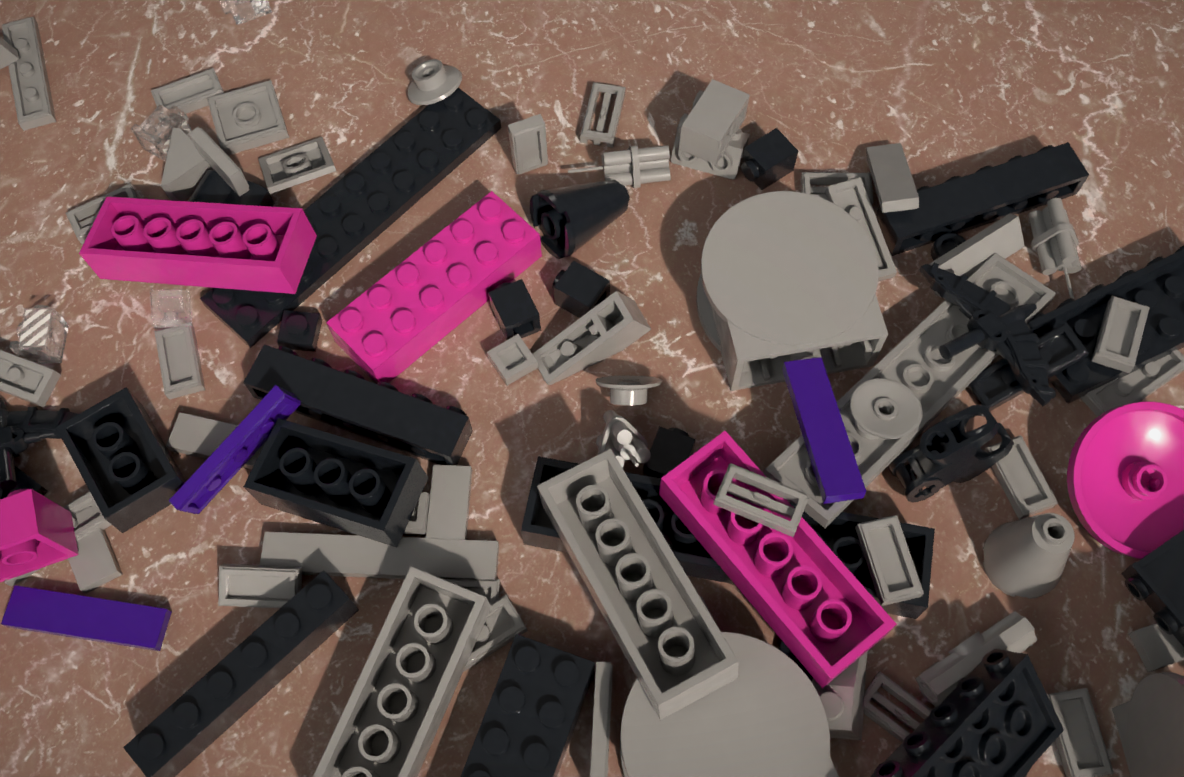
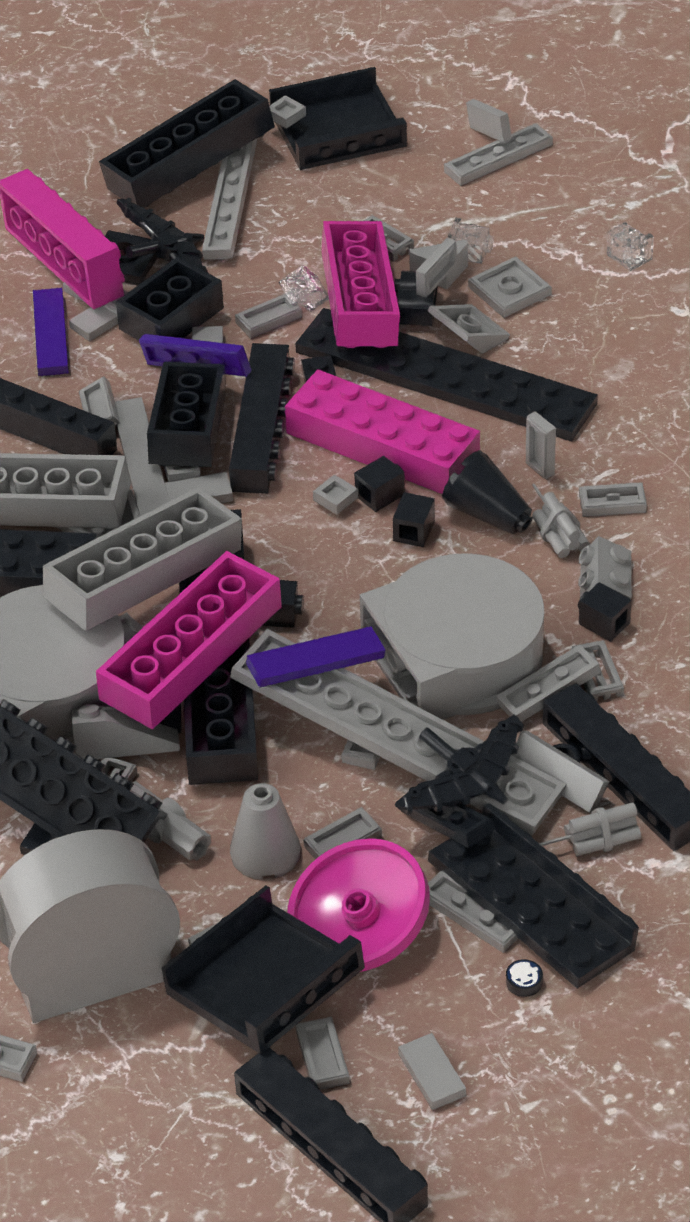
camera: 75 degrees right, 20 degrees down
(41, 335) = (259, 236): clear brick -> none
(189, 93) = (514, 243): light grey tile -> none
(433, 82) = (592, 379): light grey piece -> none
(592, 338) = (376, 536): light grey slope -> none
(623, 440) = (276, 558): light grey piece -> none
(628, 389) = (331, 563): light grey piece -> none
(713, 121) = (608, 547): light grey brick -> none
(754, 513) = (221, 622): light grey tile -> none
(889, 560) = (216, 723): light grey tile -> none
(892, 178) = (613, 690): light grey tile -> none
(892, 398) = (343, 687): light grey piece -> none
(950, 454) = (333, 763): black piece -> none
(1120, 334) = (502, 870): light grey tile -> none

